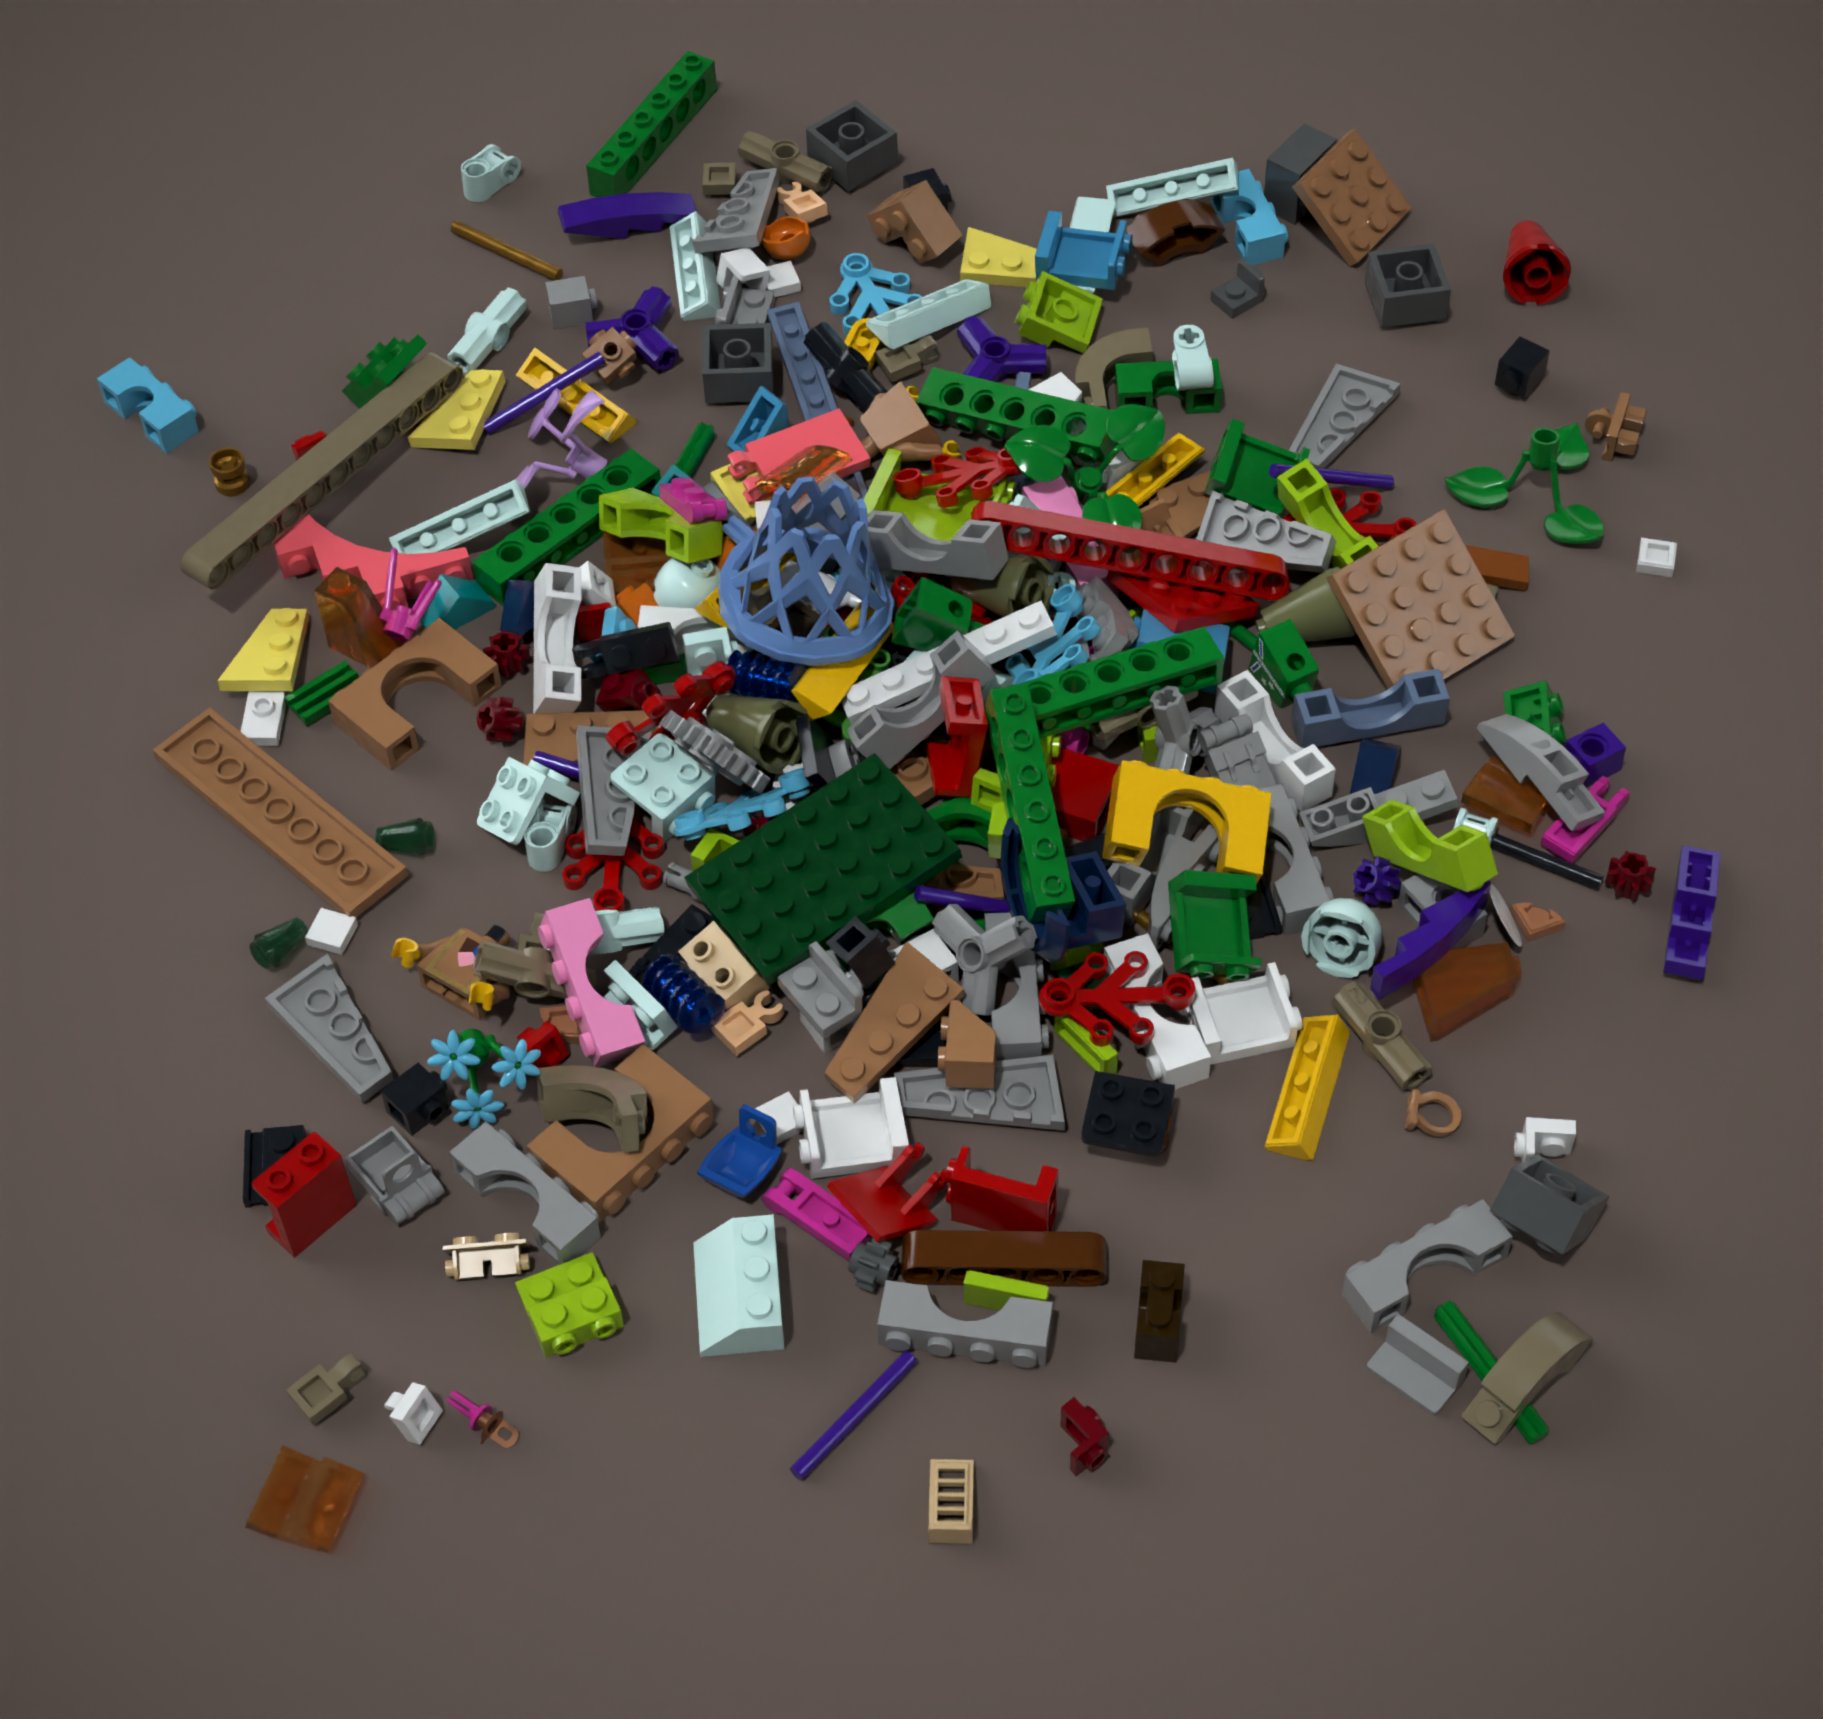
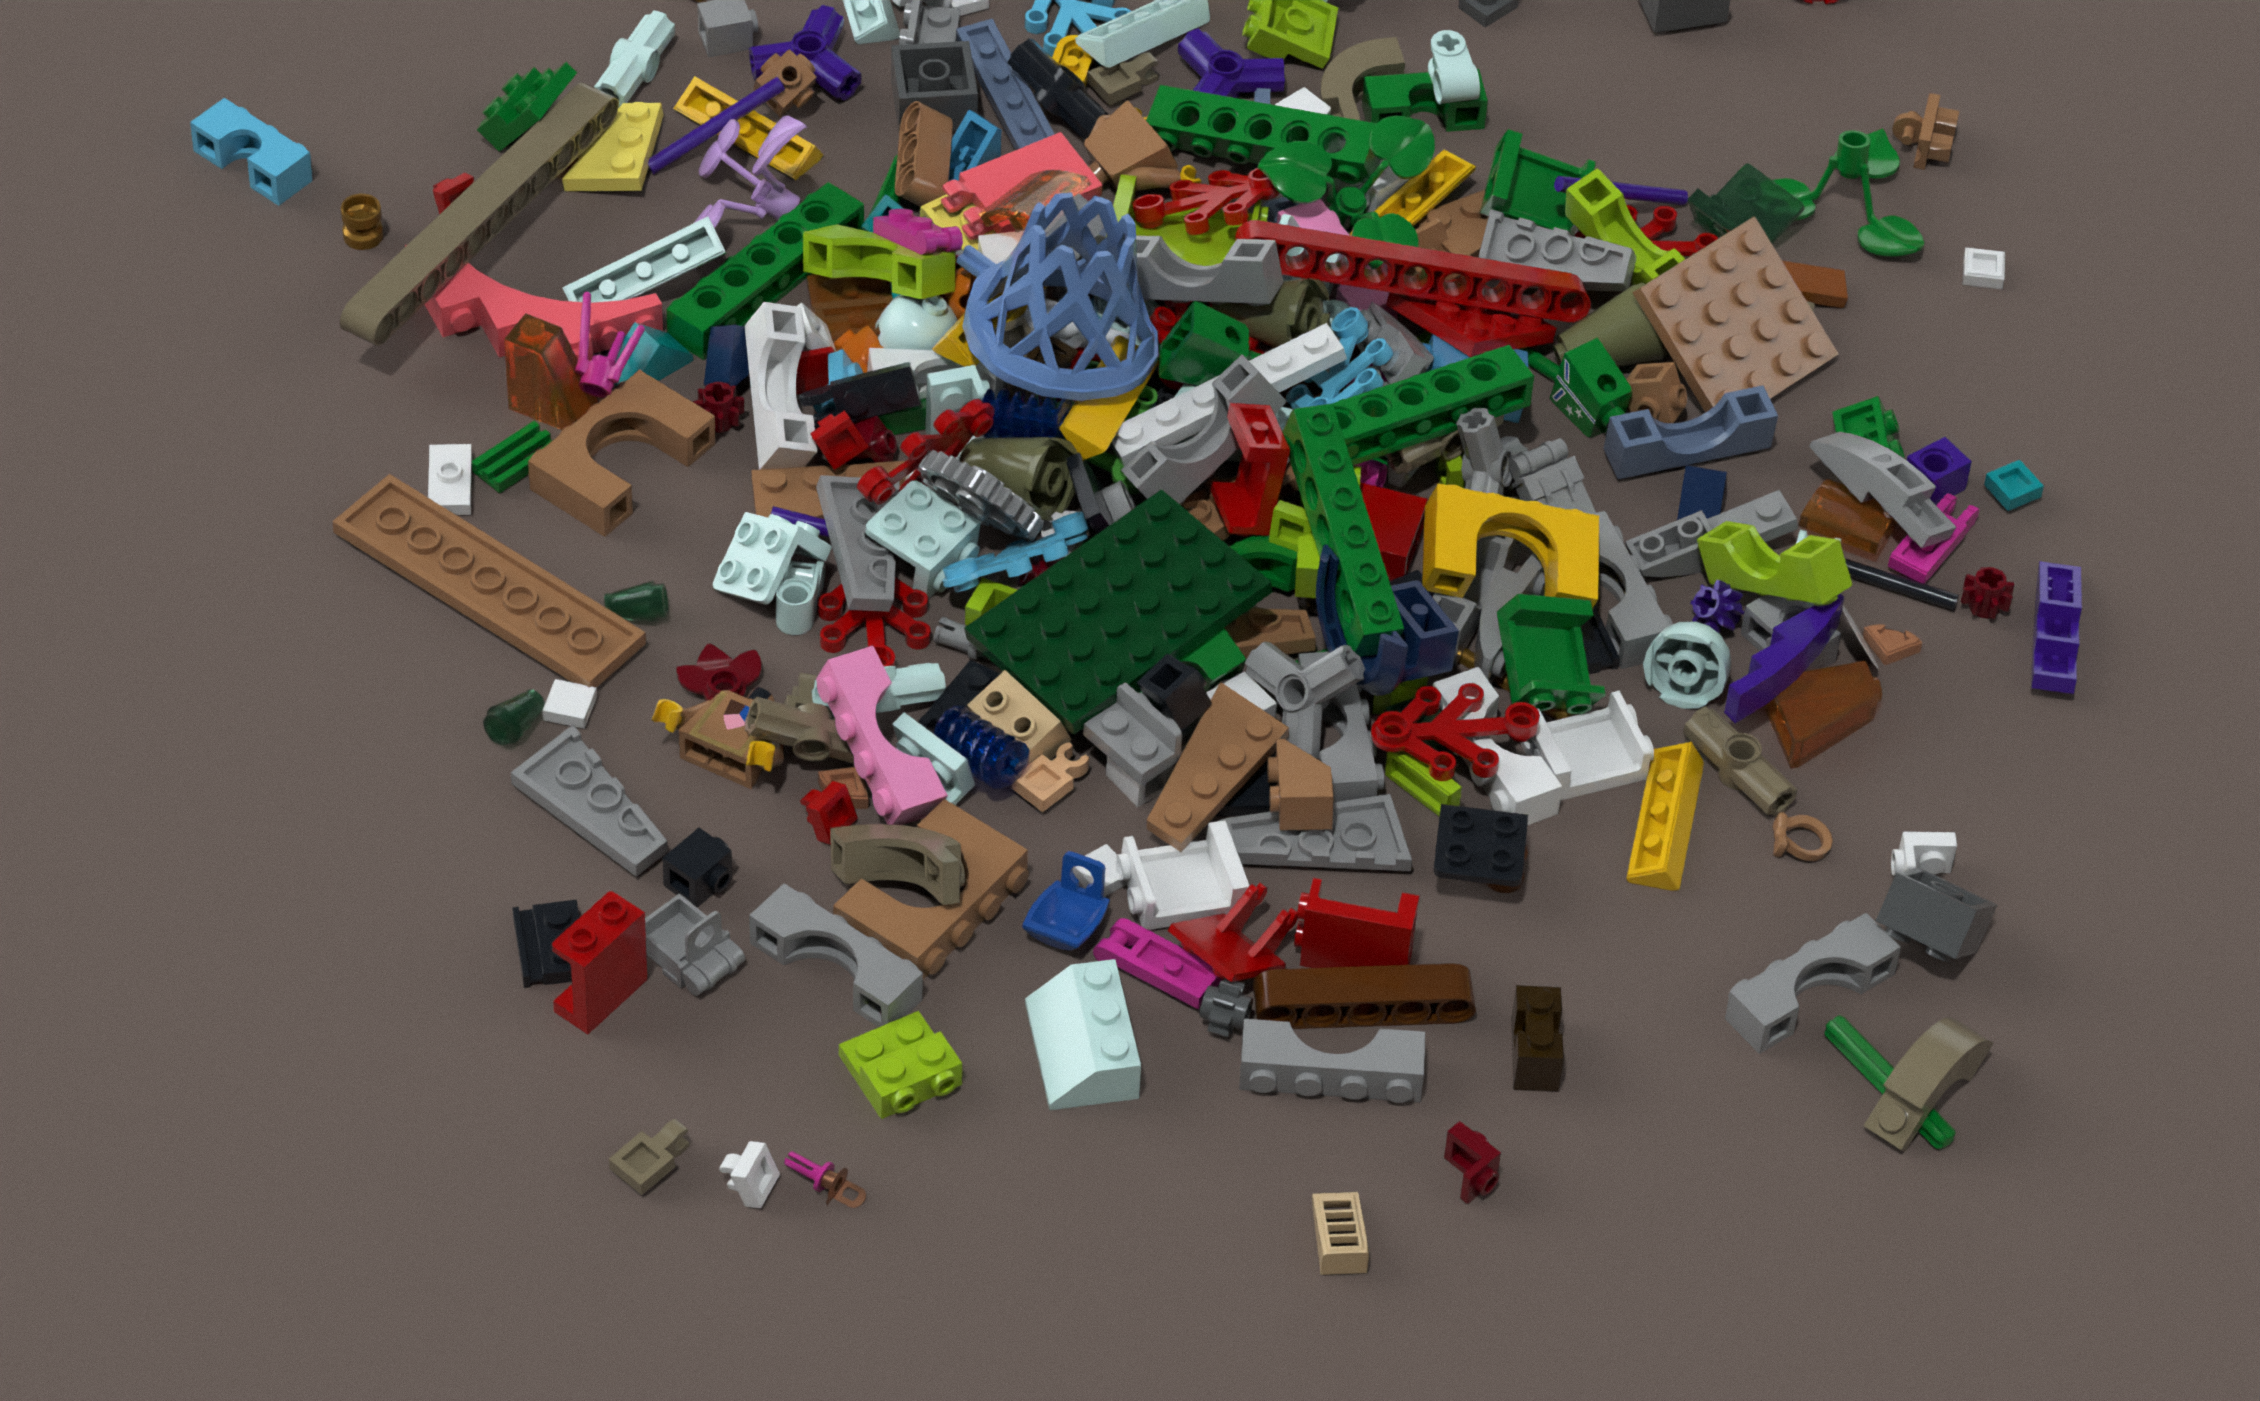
camera: 10 degrees left, 5 degrees down
(270, 654) = (445, 417): light yellow wing -> none
(304, 1500) = (646, 1266): clear orange slope -> none
(467, 1052) = (754, 815): medium azure plant -> none
(469, 906) = (719, 672): none -> dark red plate
(470, 1256) = (786, 1019): tan hinge -> none
(499, 719) = (724, 475): dark red gear -> none
(600, 690) = (838, 439): none -> red tile
(719, 424) = (923, 154): none -> medium nougat beam
(853, 1415) = (1223, 1156): dark purple bar -> none
(964, 900) = (1283, 641): dark purple bar -> none
(995, 1291) = (1358, 1027): lime tile -> none
(1300, 770) = (1627, 498): white arch -> none
(1341, 412) = (1624, 121): light grey wing -> none
(1342, 669) = (1657, 389): none -> medium nougat brick
(1418, 1366) = (1814, 1079): light grey panel -> none
(1448, 488) = (1743, 197): none -> clear green bracket
(1522, 367) = (1817, 70): black brick -> none
(1664, 769) = (2013, 485): none -> teal plate

